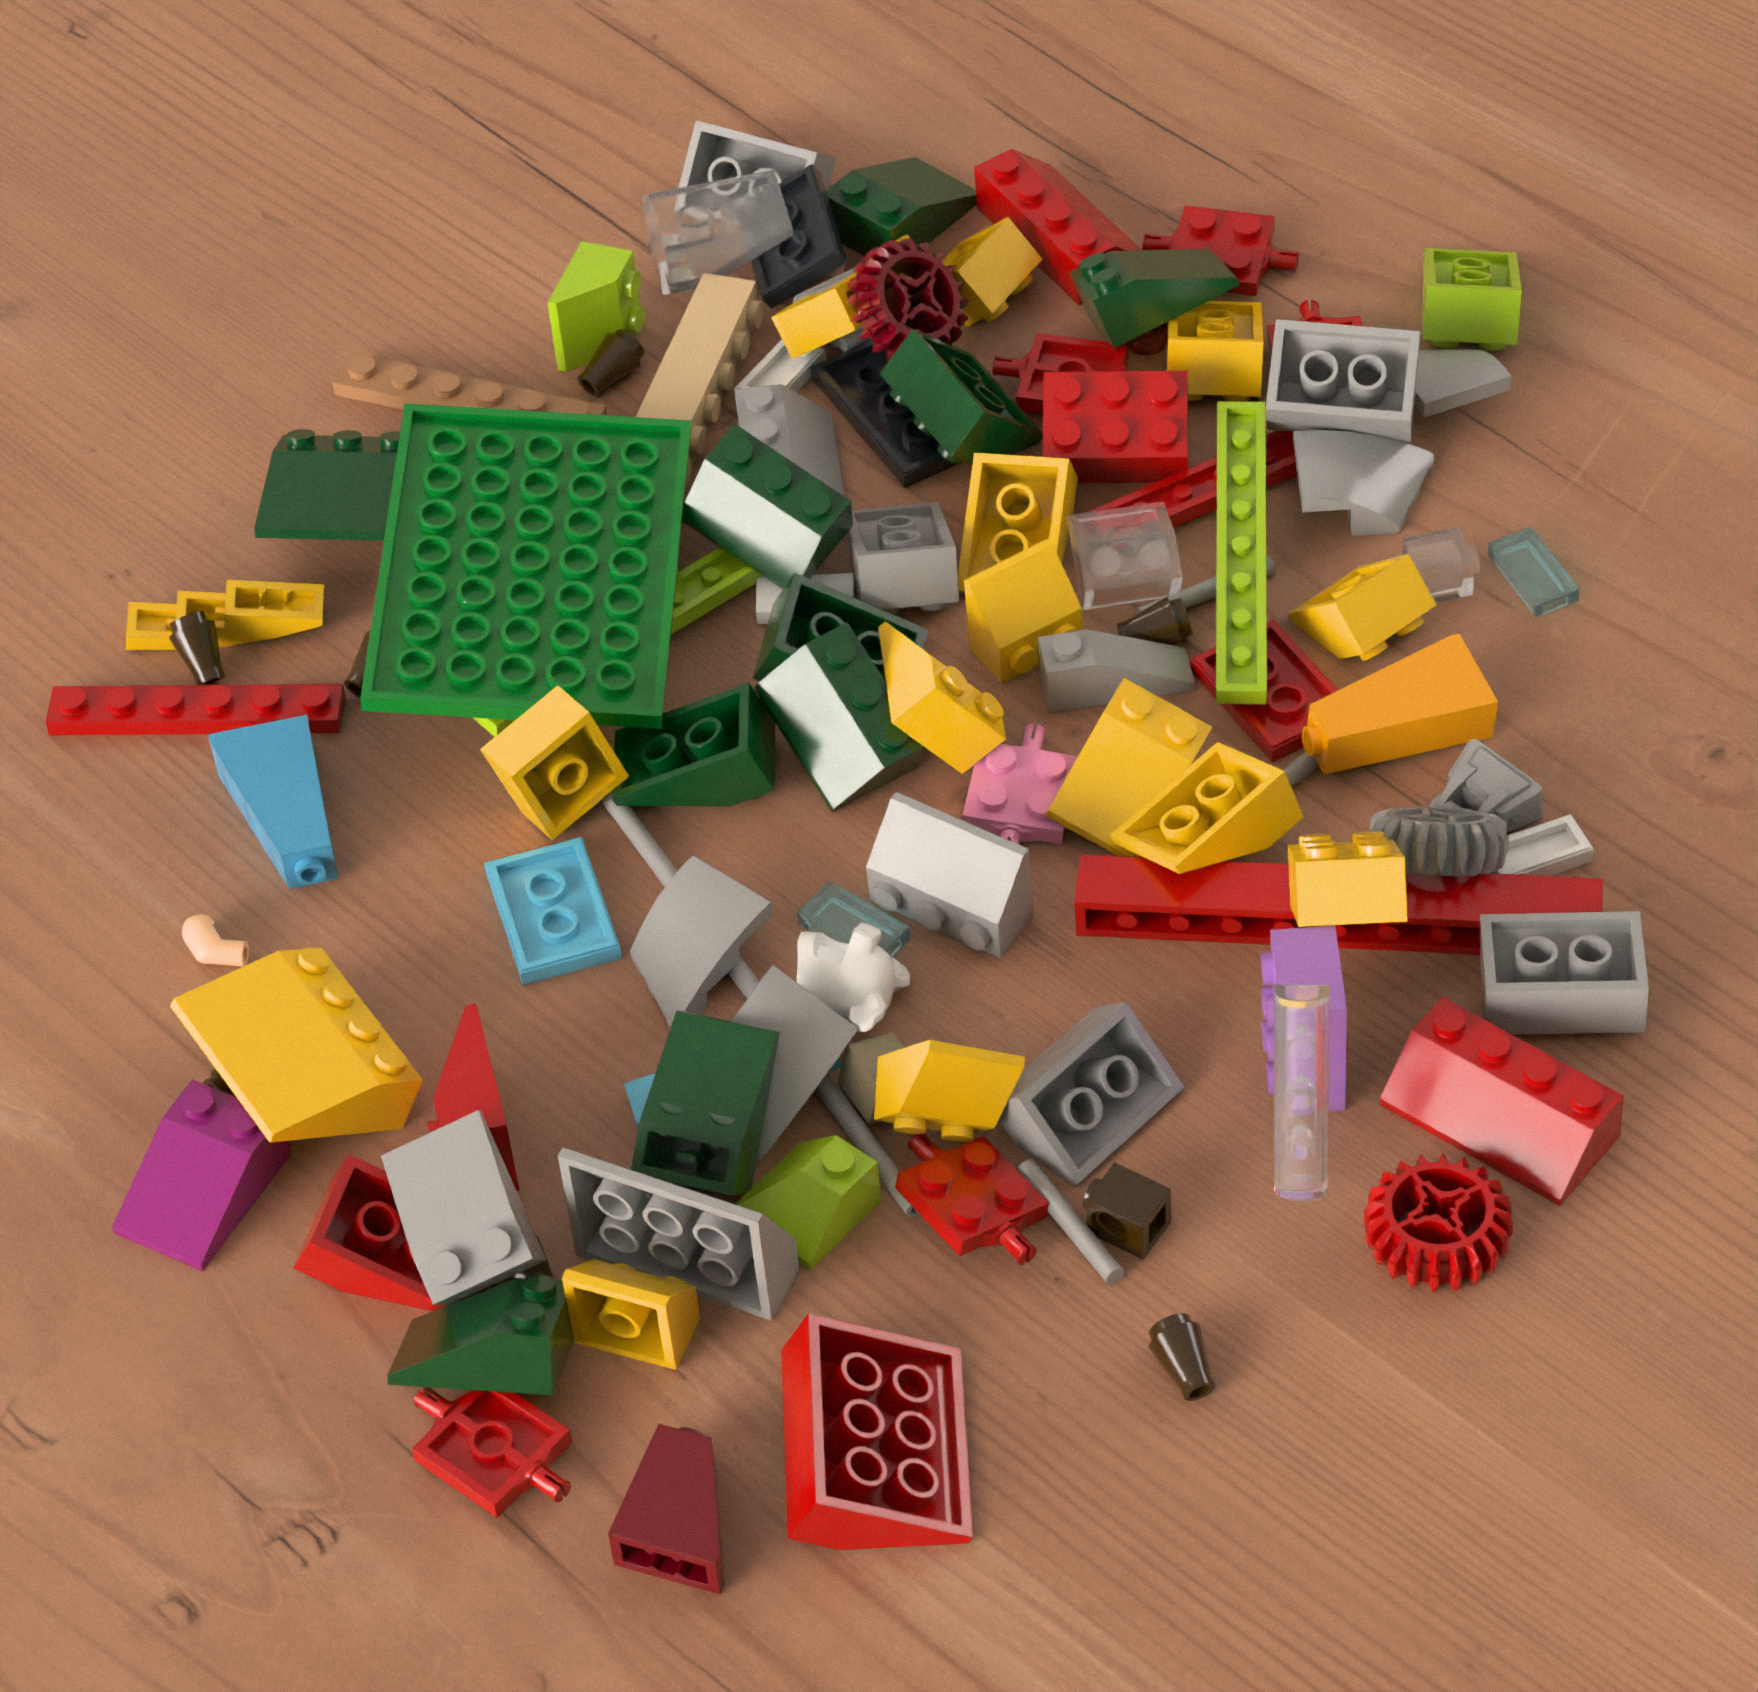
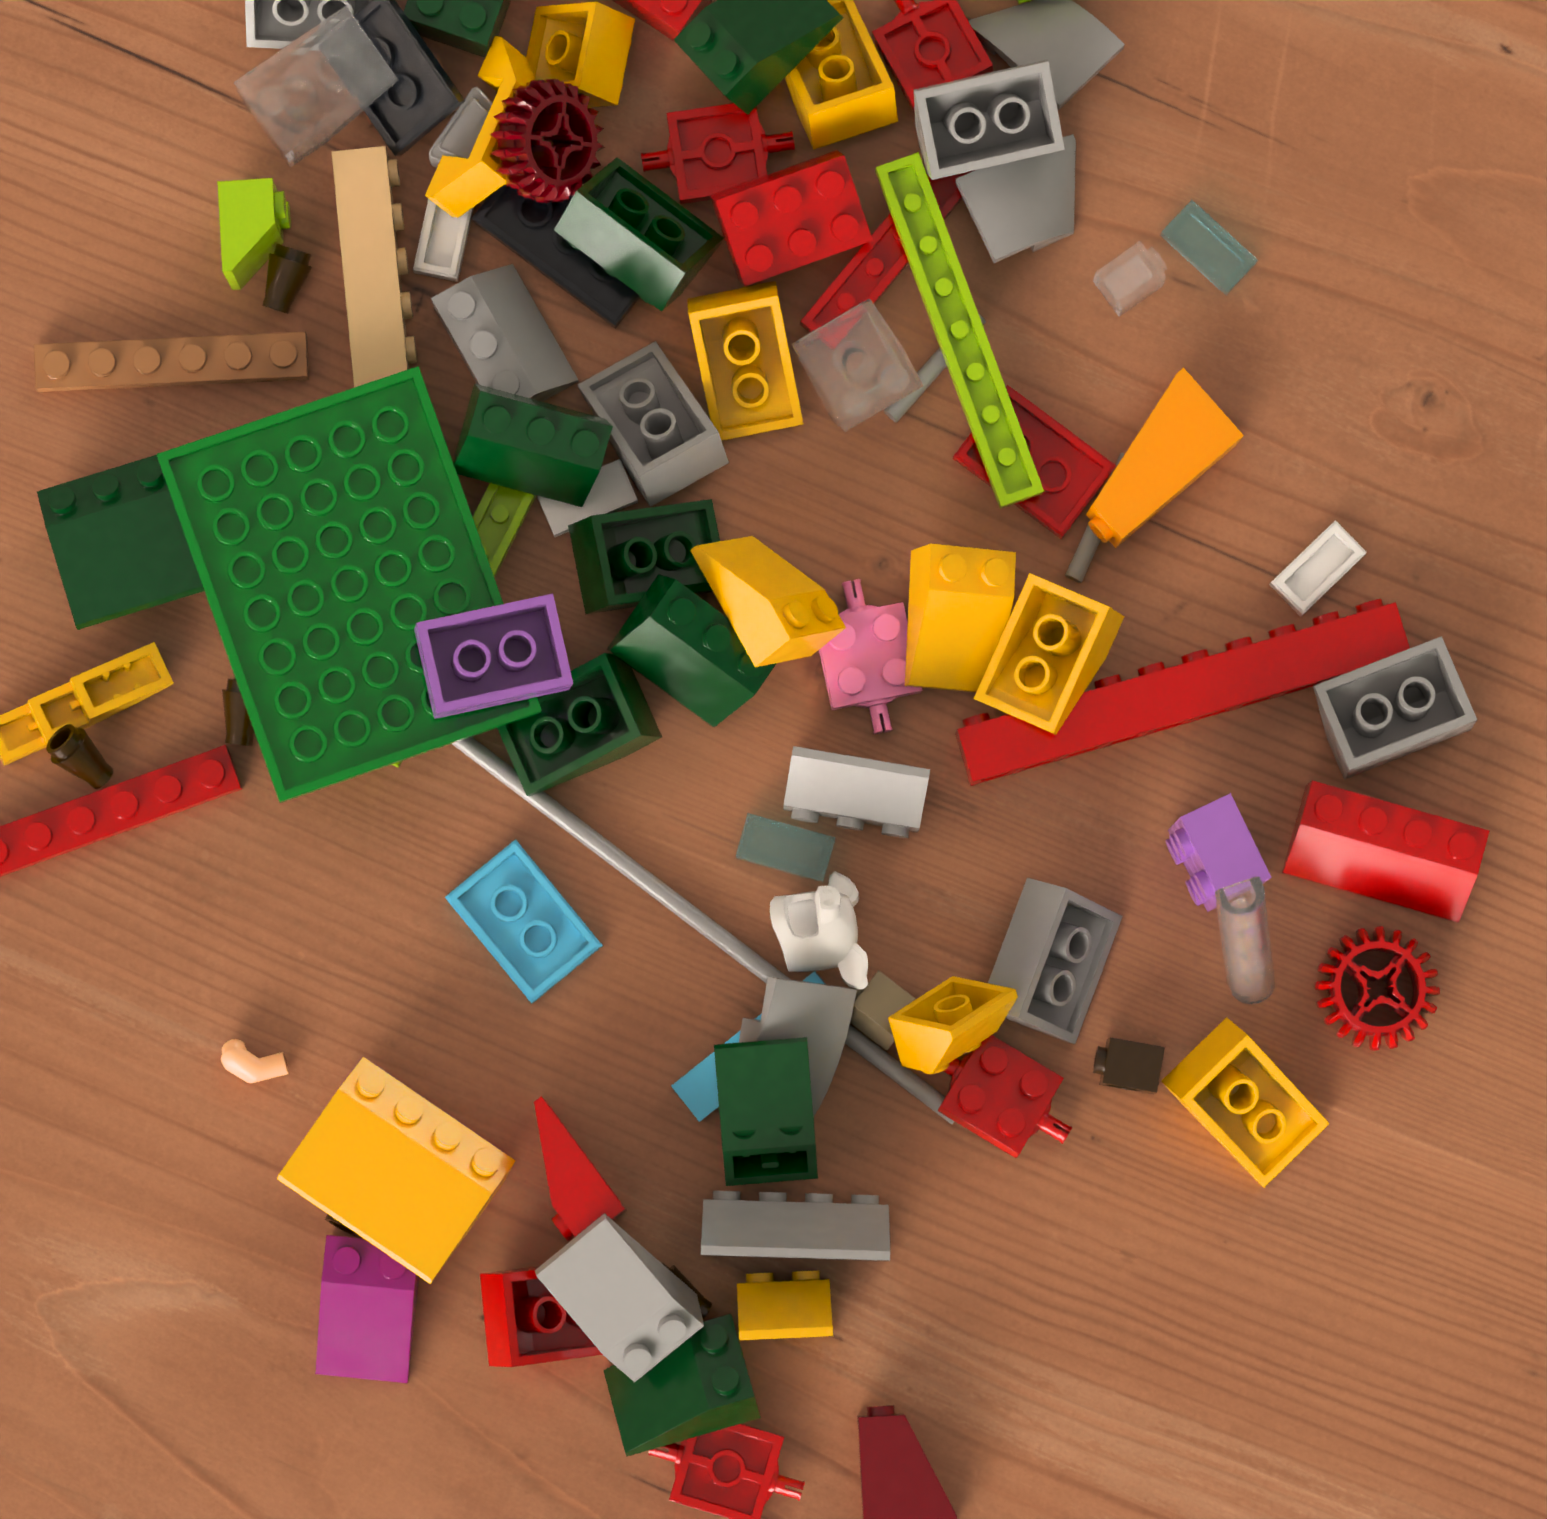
camera: 30 degrees left, 35 degrees up
(279, 792) = (234, 888): dark azure slope -> none
(555, 762) = (471, 795): yellow brick -> none
(633, 634) = (493, 656): none -> medium lavender brick
(695, 935) = (665, 922): light grey slope -> none
(817, 1194) = (867, 1142): lime slope -> none
(873, 1438) = (1021, 1354): red slope -> none
(1015, 606) = (800, 473): yellow slope -> none
(1073, 1224) = (1085, 1084): light grey bar -> none
(1088, 666) = (894, 494): light grey slope -> none
(1160, 623) = (910, 430): dark brown cone -> none
(1182, 1353) = (1224, 1184): dark brown cone -> none
(1242, 1281) = (1245, 1101): none -> yellow slope
(1347, 880) = (1214, 727): yellow brick -> none
(1366, 608) = (1081, 349): yellow slope -> none
(1445, 839) = (1248, 612): light grey gear -> none
(1491, 784) = (1262, 521): light grey piece -> none

